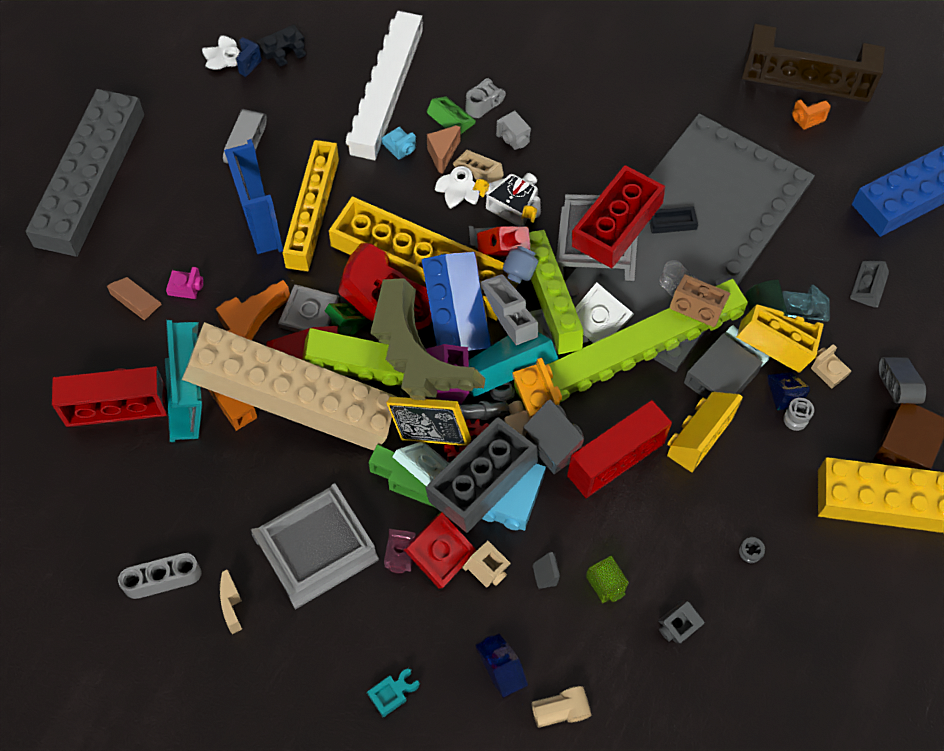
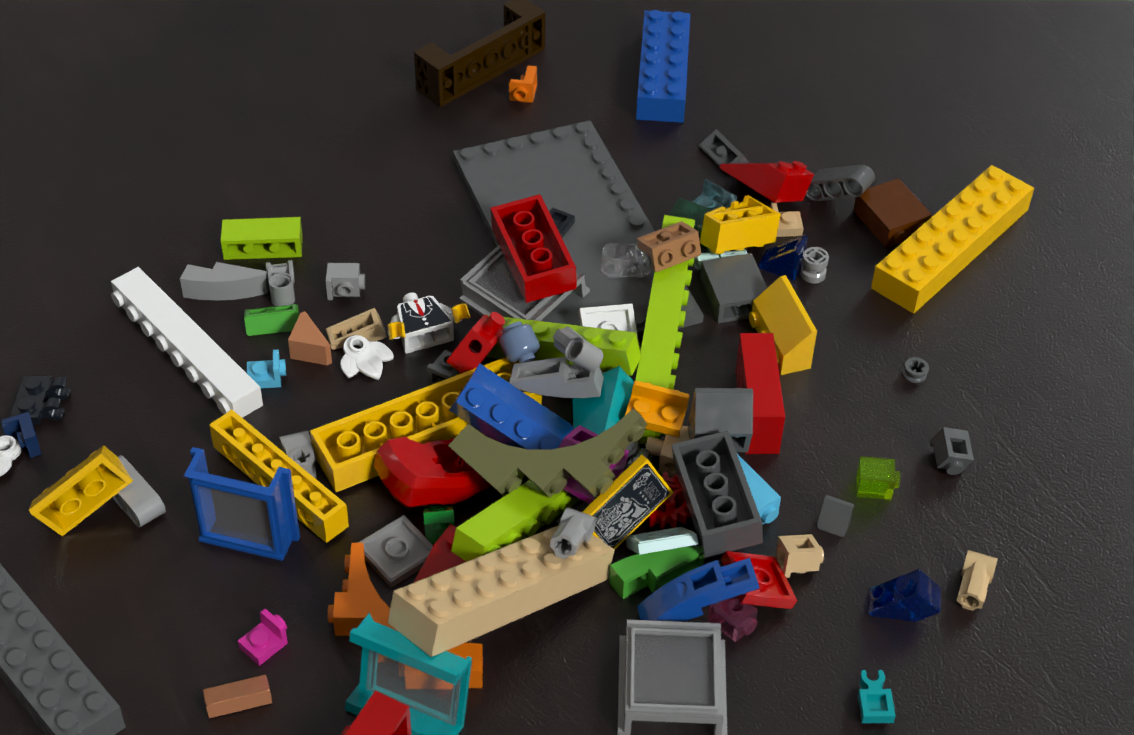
camera: 55 degrees left, 15 degrees down
(213, 112) = (81, 491): none -> yellow slope
(337, 203) = (299, 448): none -> light grey piece
(369, 400) = (572, 532): none -> light grey piece
(391, 515) = (700, 587): none -> blue slope
(452, 66) = (223, 282): none -> light grey slope
(512, 62) = (261, 238): none -> lime brick
(529, 303) = (578, 349): none -> light grey piece
(861, 329) = (773, 180): none -> red slope

